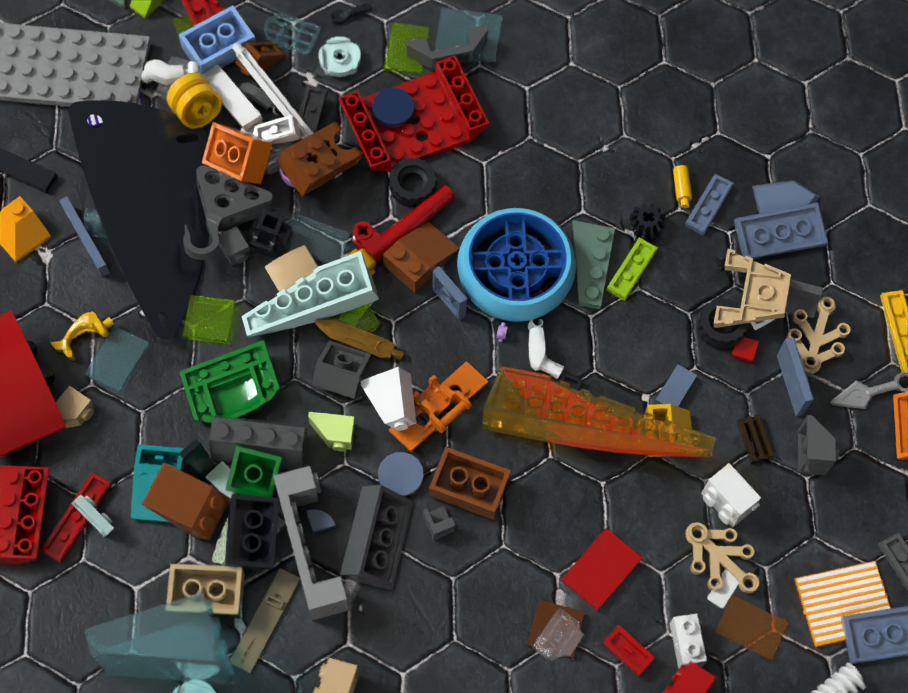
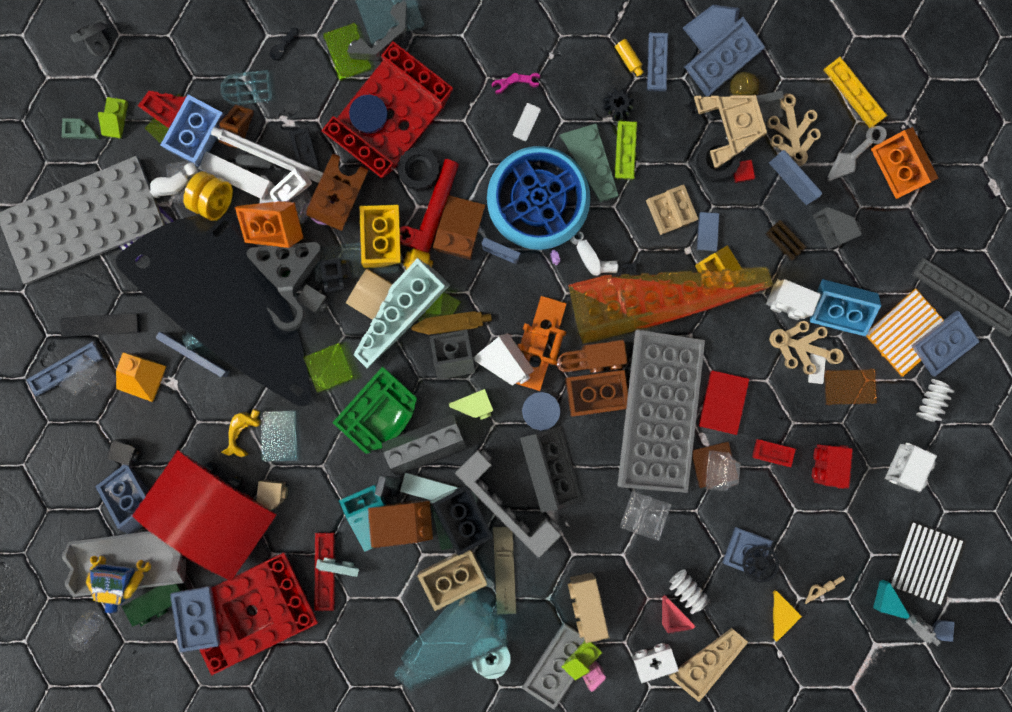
camera: 25 degrees left, 20 degrees up
(253, 472) = (435, 473): green slope -> none
(320, 521) = (502, 477): sand blue tile -> none
(335, 218) = (380, 236): none -> yellow slope
(336, 67) = (299, 78): light aqua plate -> none
(438, 522) = (588, 432): dark grey panel -> none
(450, 642) = (645, 515): none -> clear slope
(484, 442) = (594, 357): none -> dark orange brick
(526, 538) = (661, 412): none -> light grey plate
(545, 194) = (526, 122): none -> white sticker
(556, 149) = (514, 78): none -> dark pink piece
(649, 348) = (672, 209): none -> tan slope
(688, 640) = (813, 425): white brick -> none
(784, 537) = (845, 308): none -> dark azure slope
(790, 264) = (744, 84): none -> clear yellow hair

